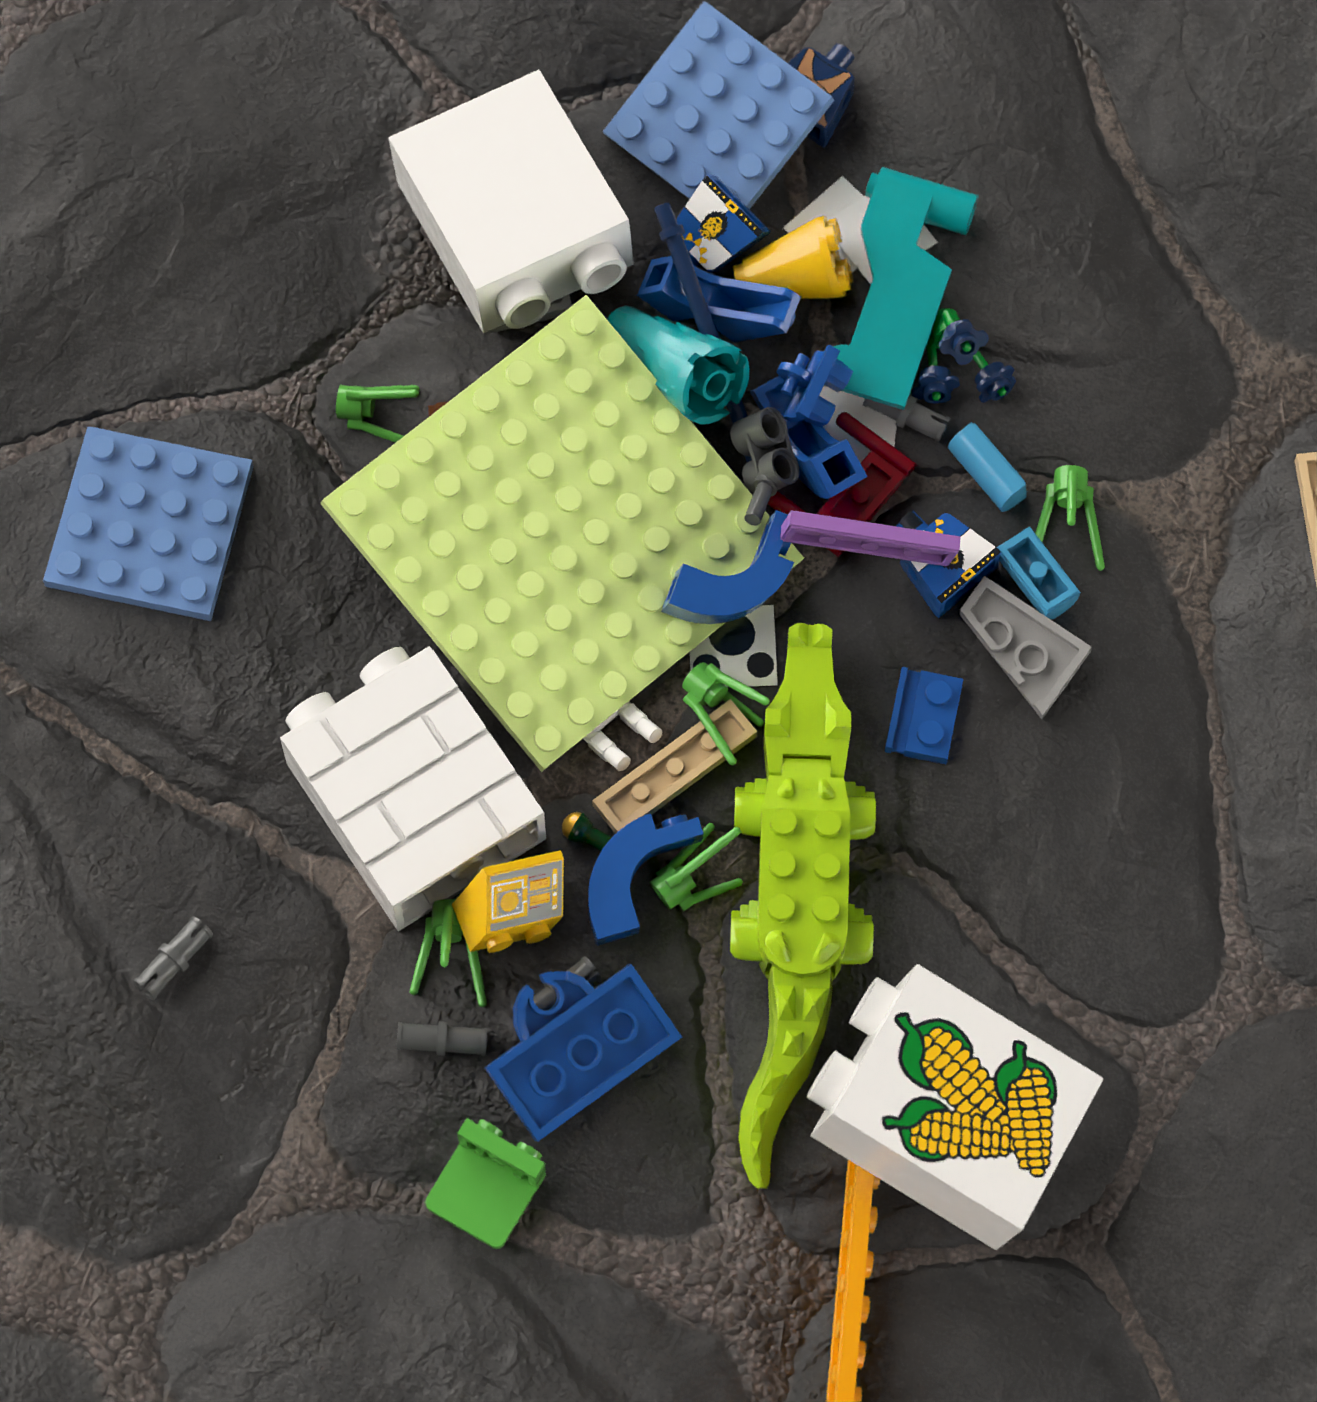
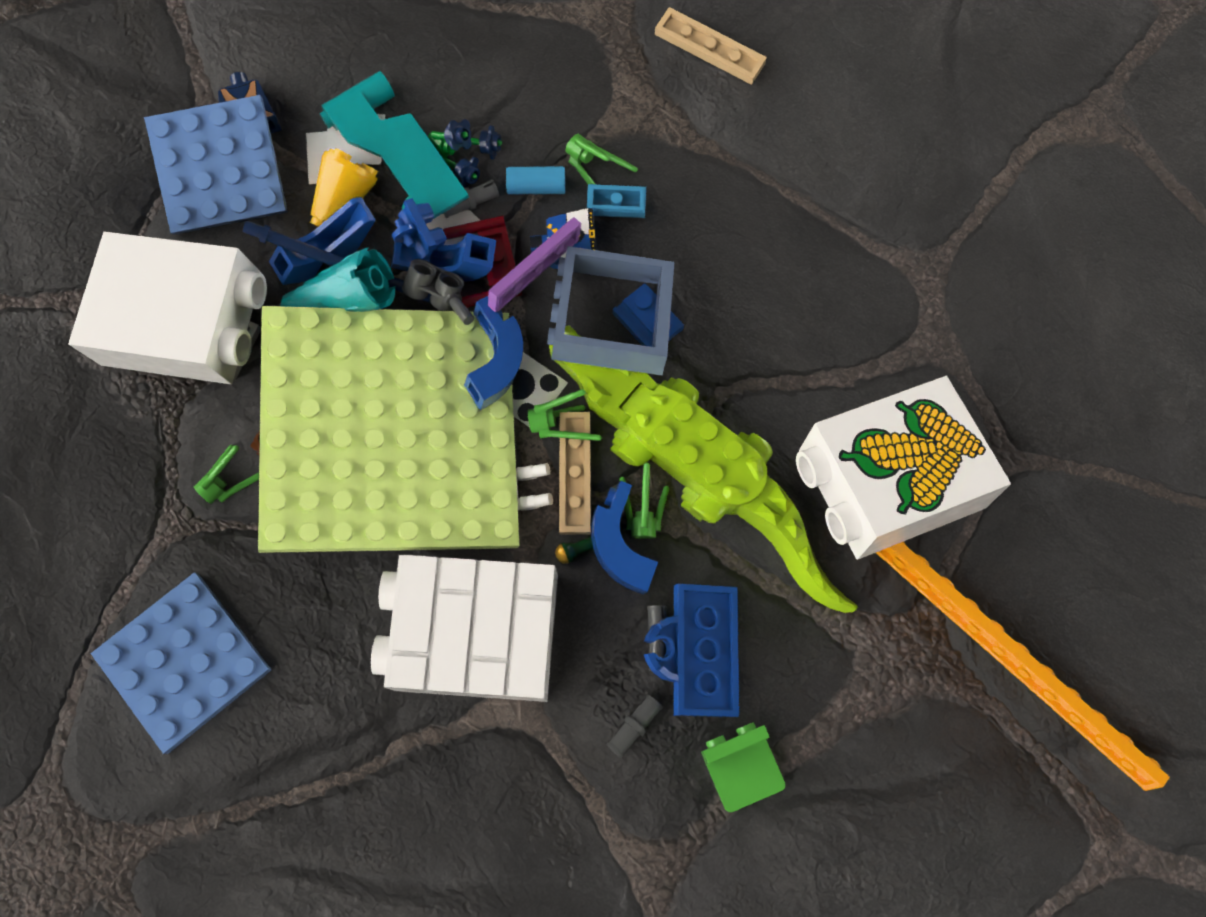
camera: 50 degrees left, 5 degrees up
(173, 958) = (462, 852): dark grey pin -> none
(446, 930) = (568, 669): bright green plant -> none
(512, 902) = (590, 625): yellow slope -> none
(718, 225) = (281, 210): torso -> none
(830, 698) = (604, 352): none -> sand blue window
(1025, 643) = (651, 235): light grey wing -> none

